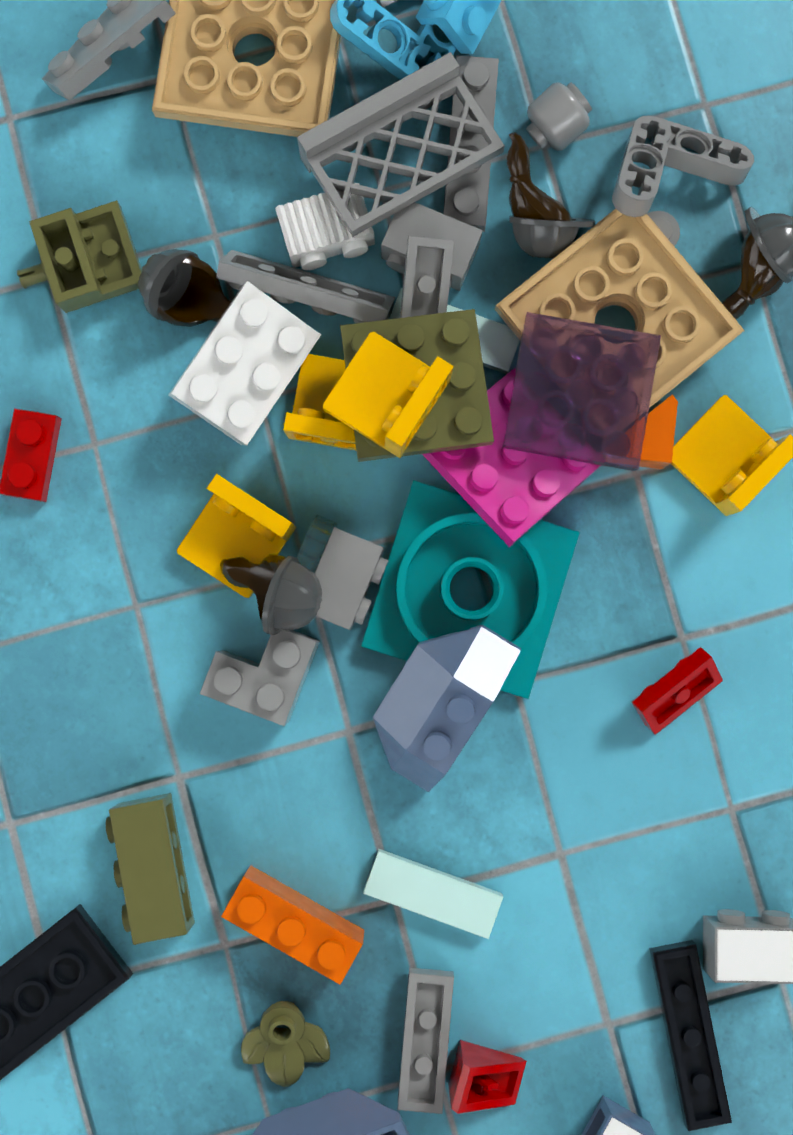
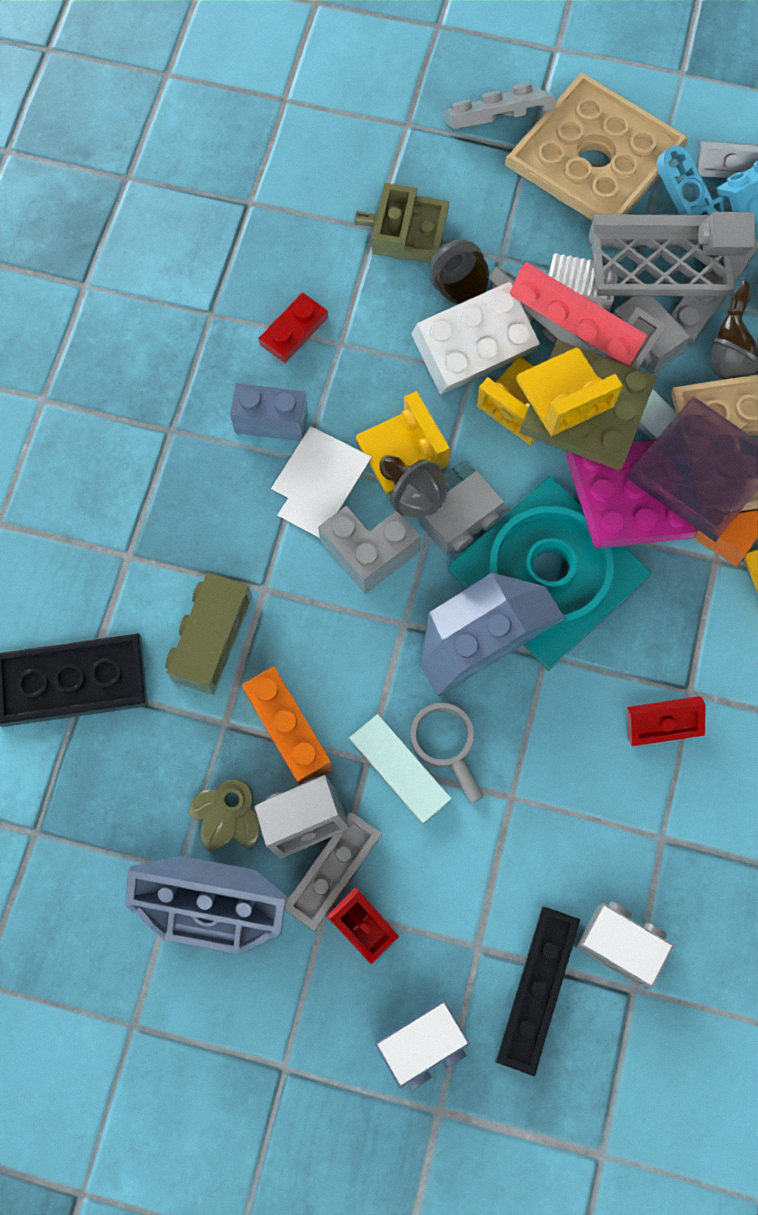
camera: 30 degrees right, 15 degrees down
(63, 579) = (269, 412): none -> sand blue brick
(165, 623) = (318, 479): none -> white sticker
(348, 286) = (577, 314): none -> coral plate
(363, 1011) = (301, 816): none -> brick
(463, 81) = (727, 233): none -> light grey brick
(487, 853) = (456, 763): none -> light grey piece

